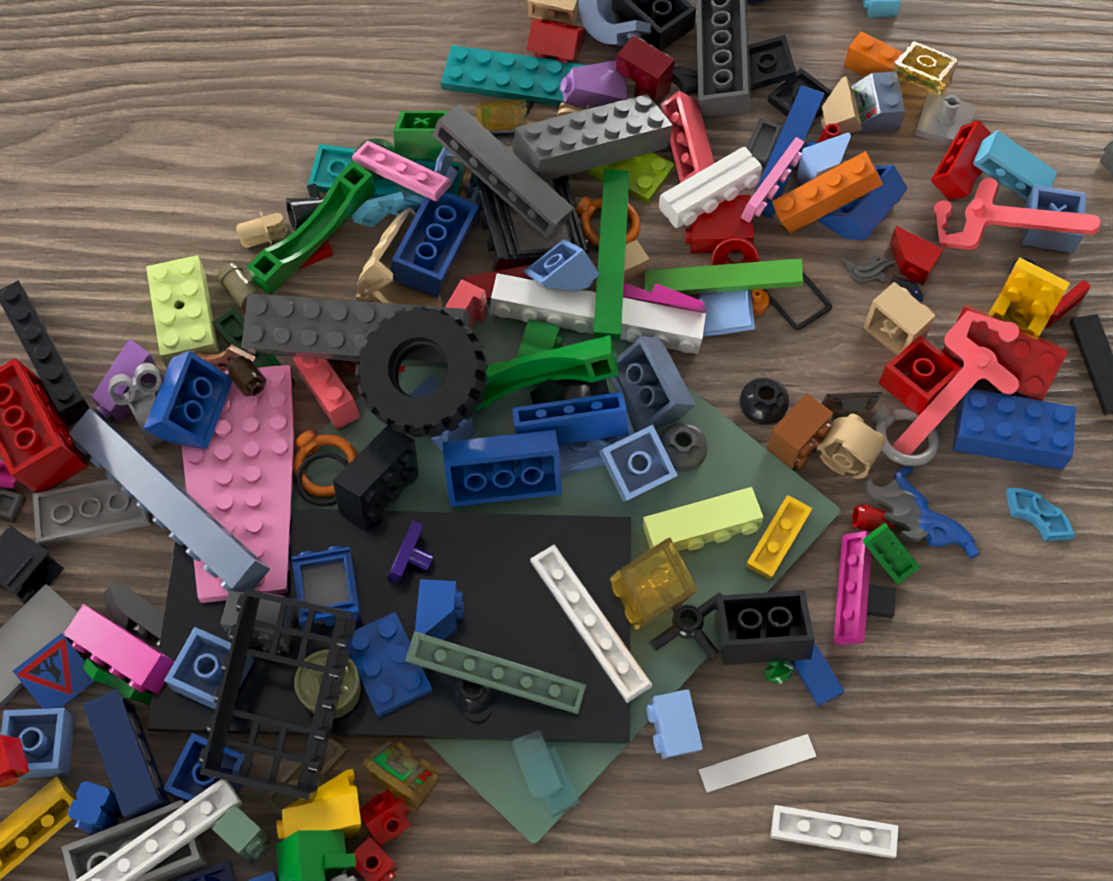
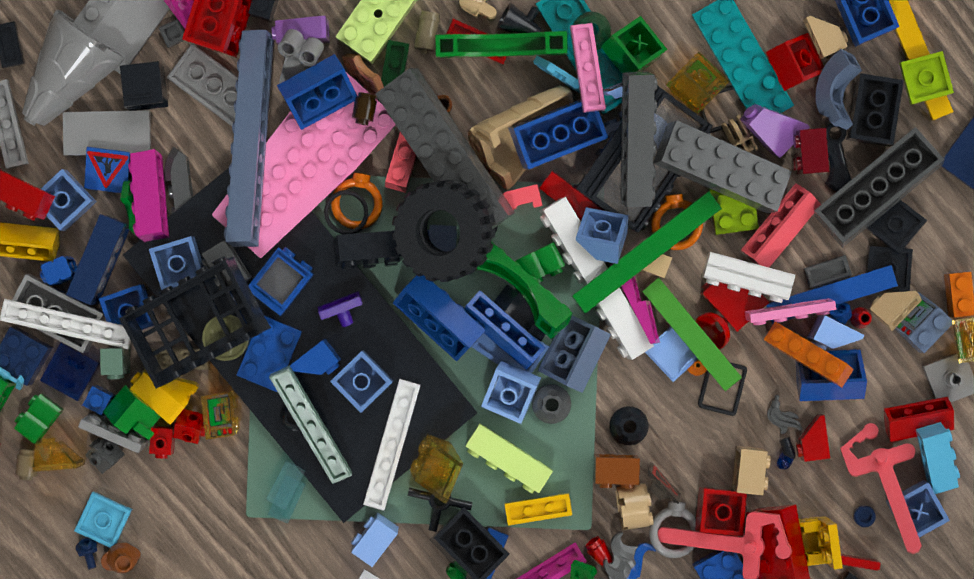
camera: 55 degrees right, 25 degrees up
(498, 590) = (361, 381): none -> medium blue brick

